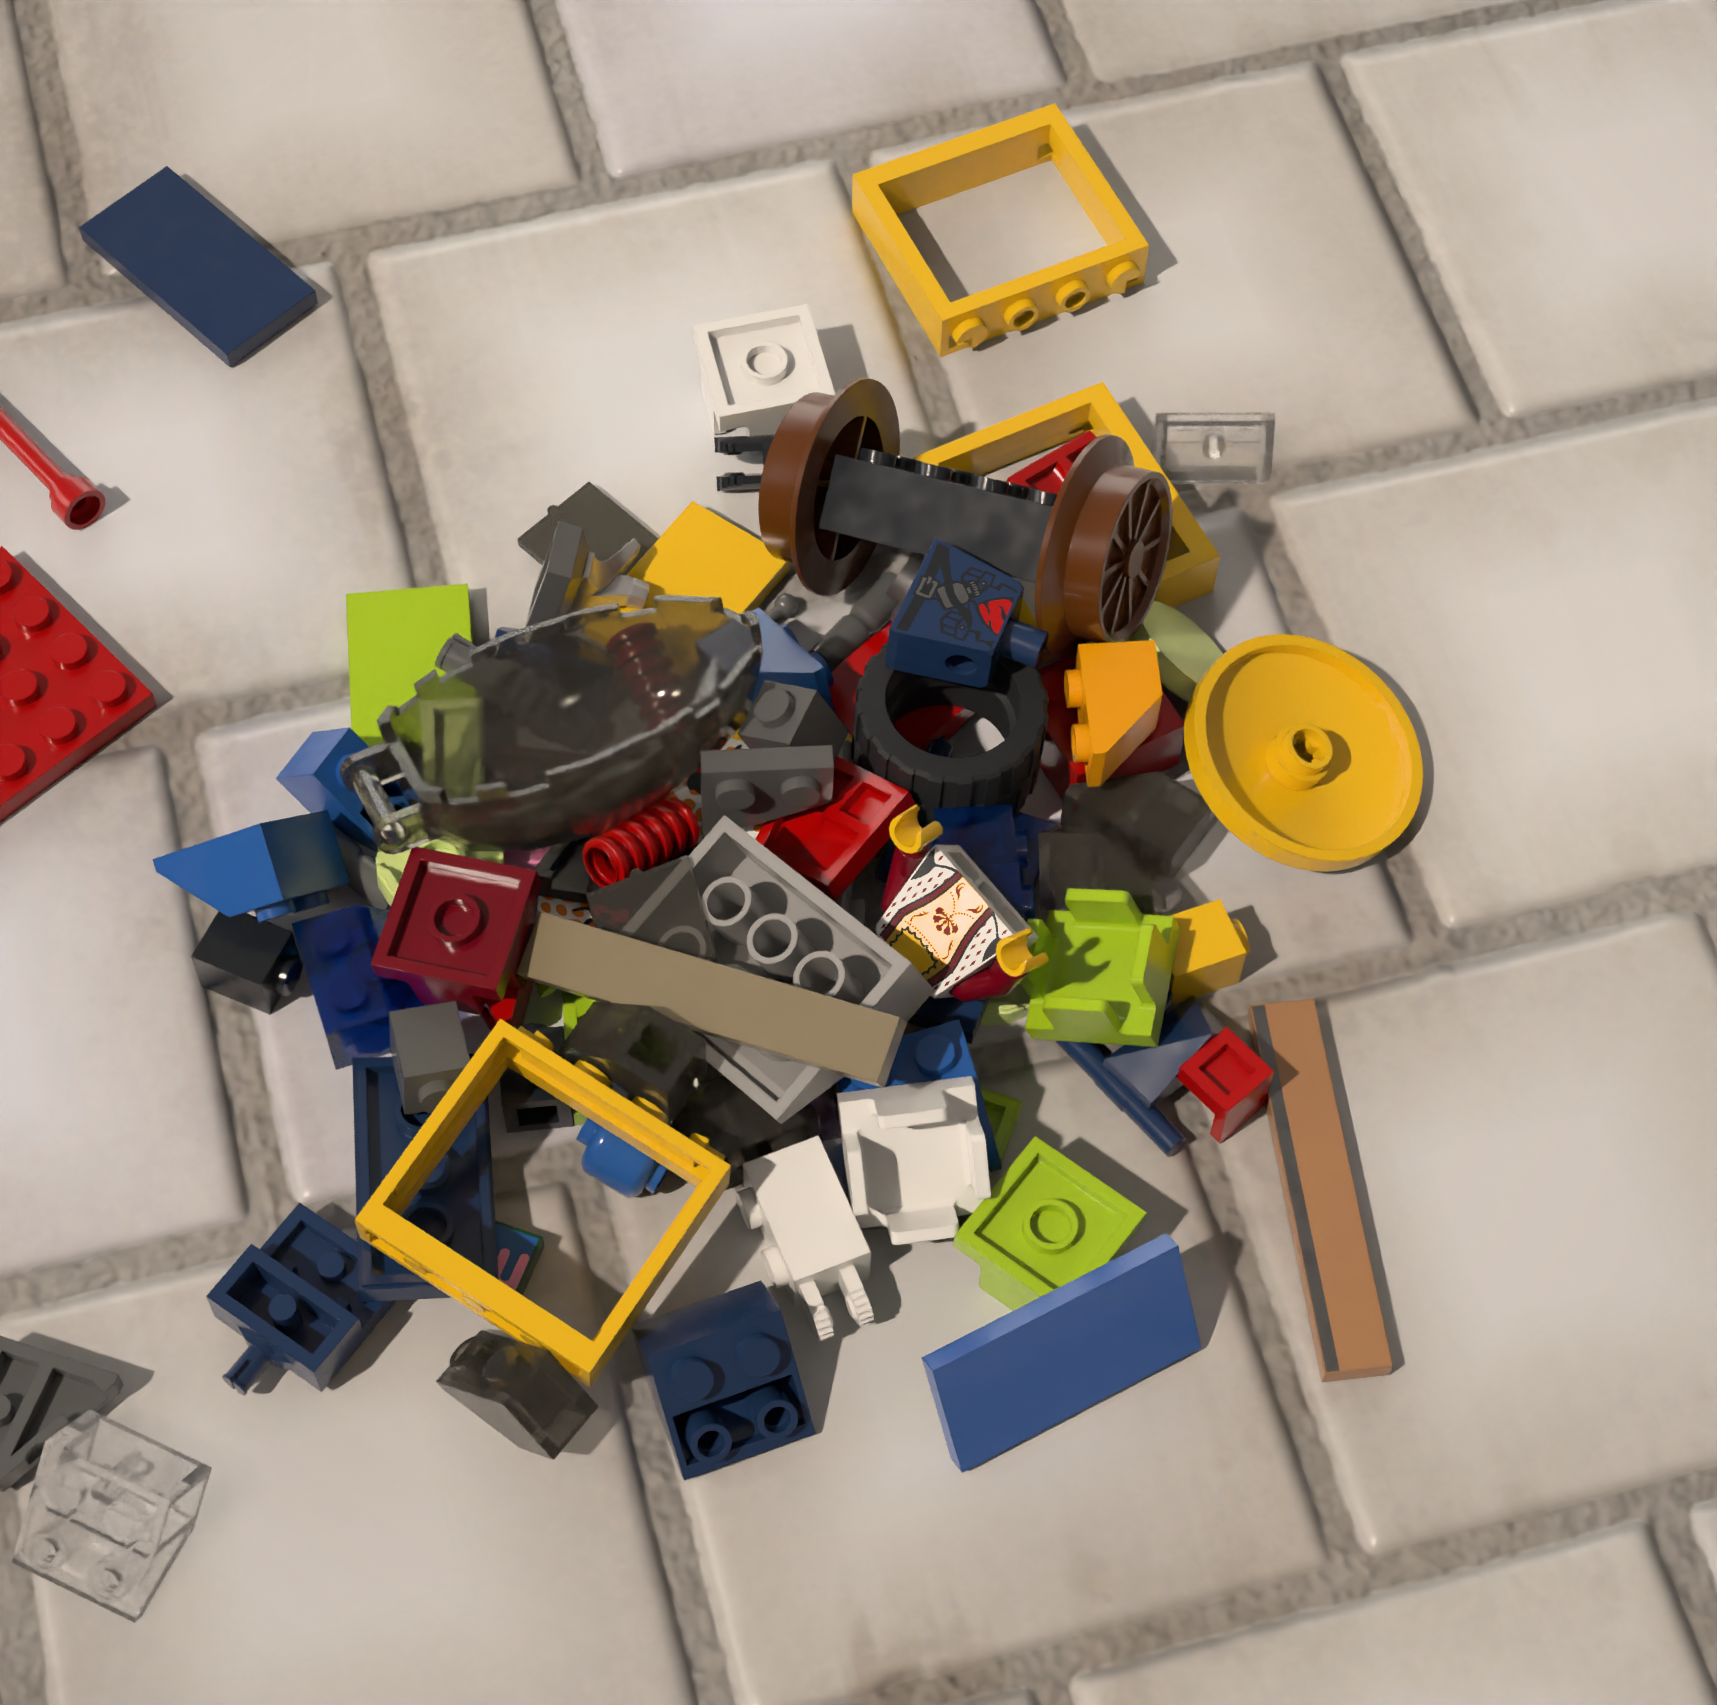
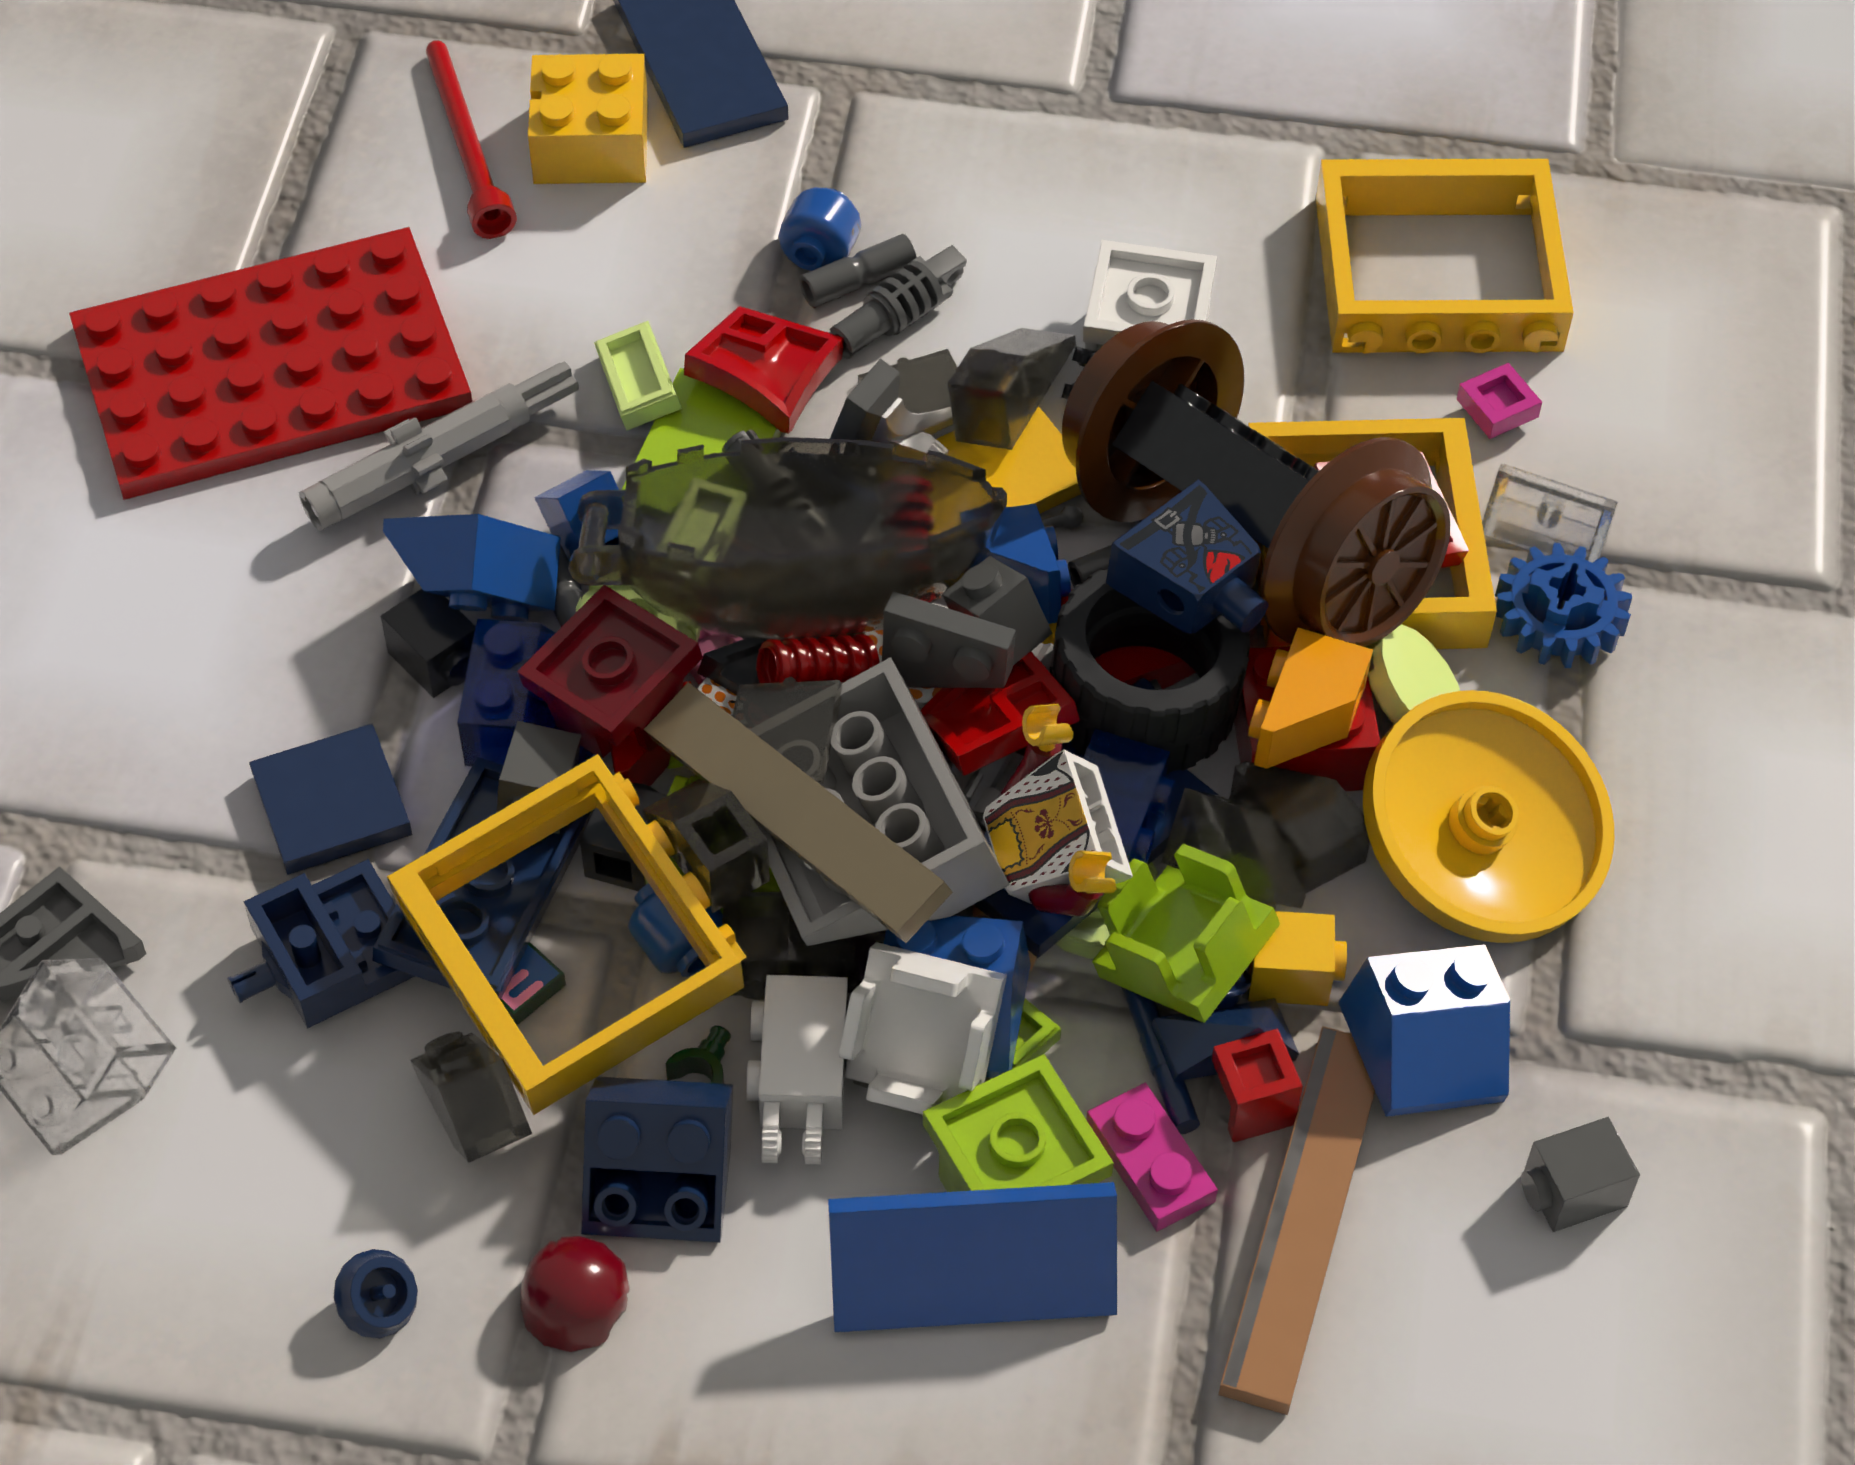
camera: 25 degrees right, 5 degrees down
(128, 371) = (588, 118): none -> yellow piece
(138, 774) = (421, 453): none -> light grey piece
(224, 1155) = (330, 798): none -> dark blue tile
(309, 616) = (637, 375): none -> yellowish green tile
(412, 403) = (821, 225): none -> blue head
(428, 559) = (765, 363): none -> red plate
(460, 439) = (852, 272): none -> dark grey piece
(521, 452) = (901, 300): none -> dark grey hinge
(526, 1622) = (375, 1293): none -> dark blue hat
(670, 499) = (1004, 384): none -> clear smoke slope
(708, 1541) = (573, 1293): none -> dark red hair
(714, 1264) = (701, 1060): none -> dark green piece
(1116, 351) = (1499, 400): none -> dark pink plate
(1167, 1188) = (1152, 1157): none -> dark pink plate
(1267, 527) = (1592, 612): none -> blue gear
(1350, 971) = (1431, 1029): none -> blue slope
(1533, 1051) = (1579, 1174): none -> dark grey brick

